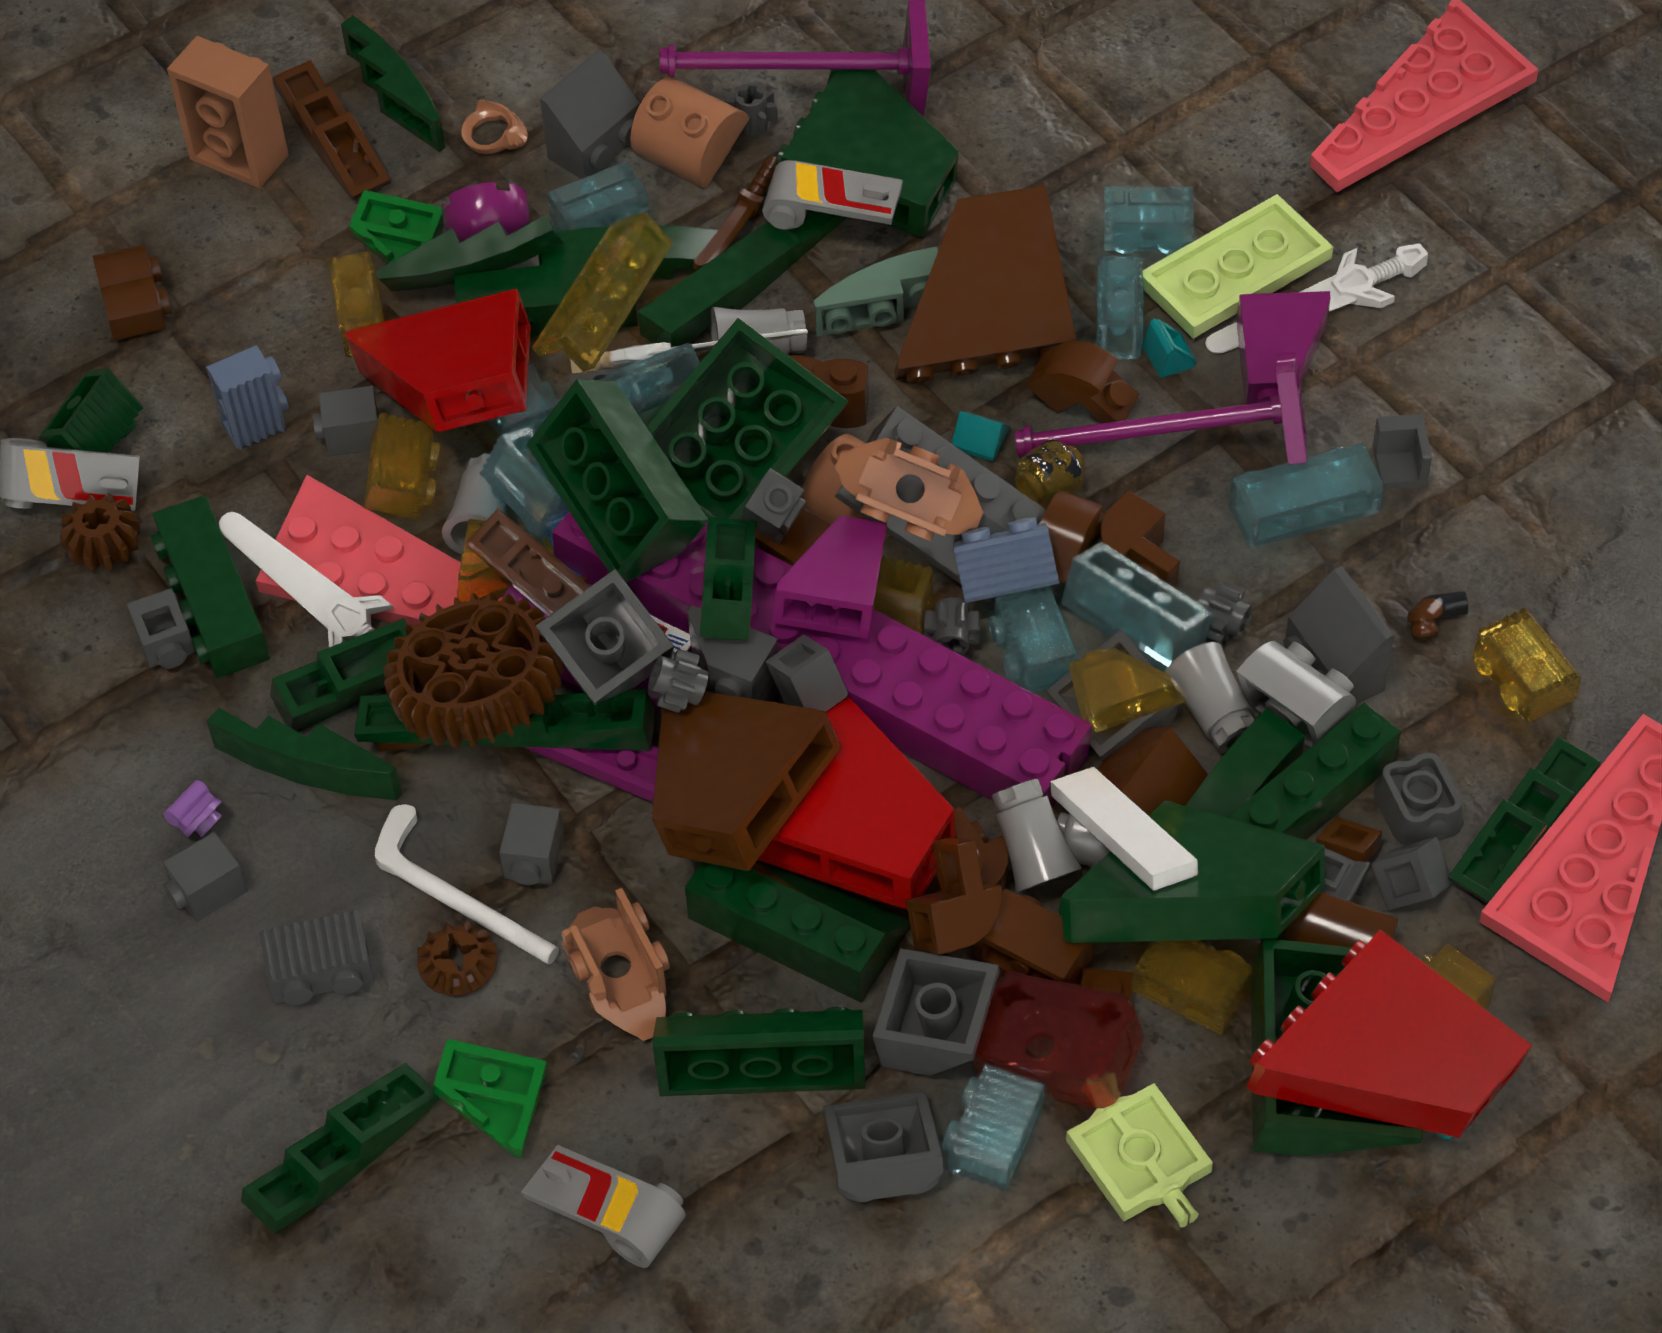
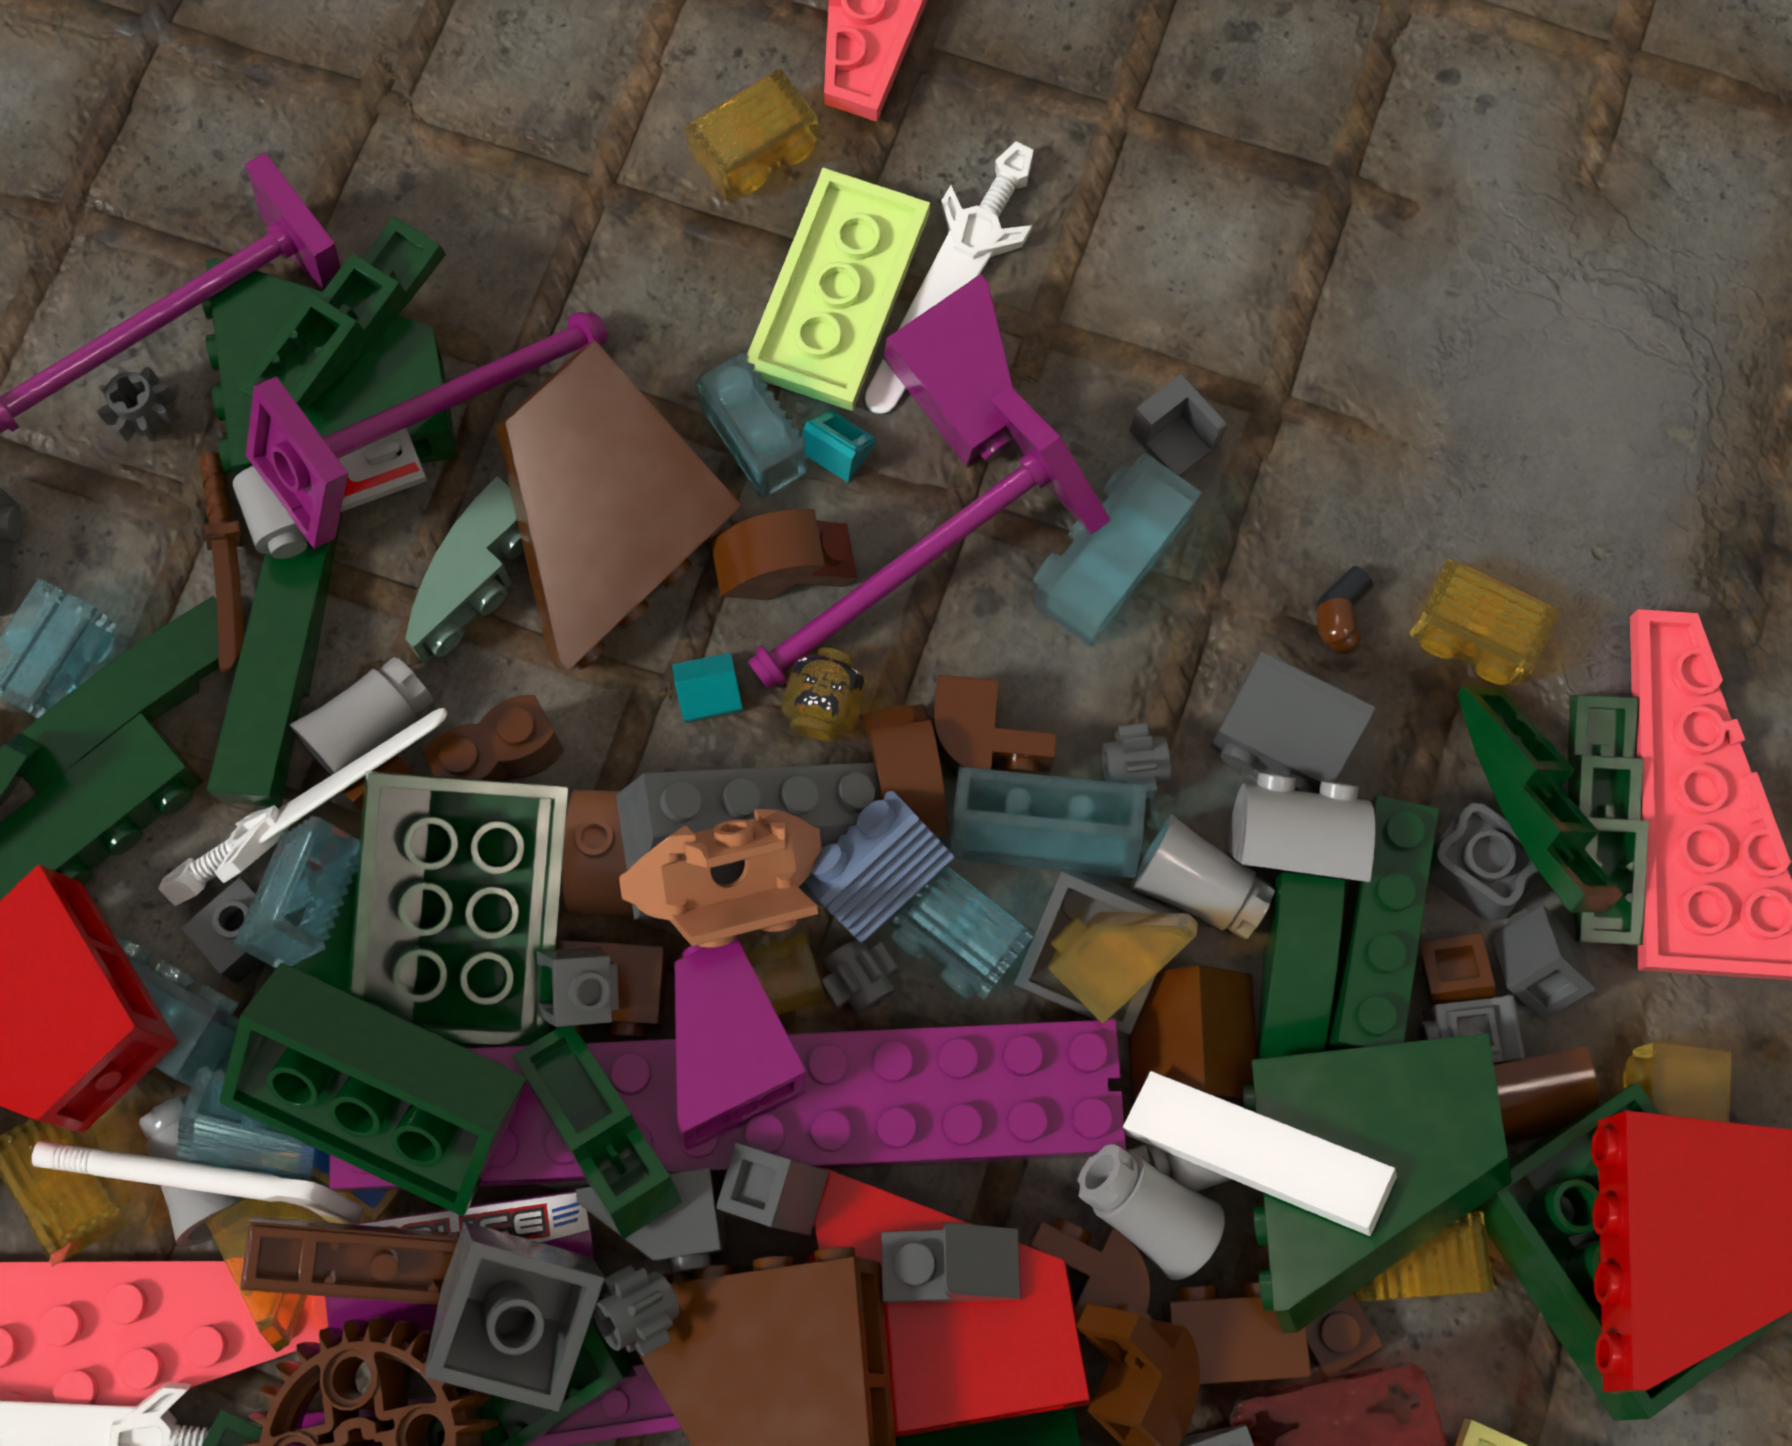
camera: 40 degrees left, 20 degrees up
(528, 521) = (198, 1177): none -> white piece
(605, 291) = (154, 788): clear yellow fence -> none
(685, 130) = (79, 483): nougat brick -> none
(821, 158) = (306, 467): none -> magenta tile
(884, 768) = (951, 1265): none -> dark grey slope
(897, 118) = (351, 313): none -> dark green slope
(1147, 219) = (703, 285): clear light blue brick -> none
(1246, 156) = (753, 135): none -> clear yellow brick
(1475, 771) = (1527, 784): none -> dark green slope

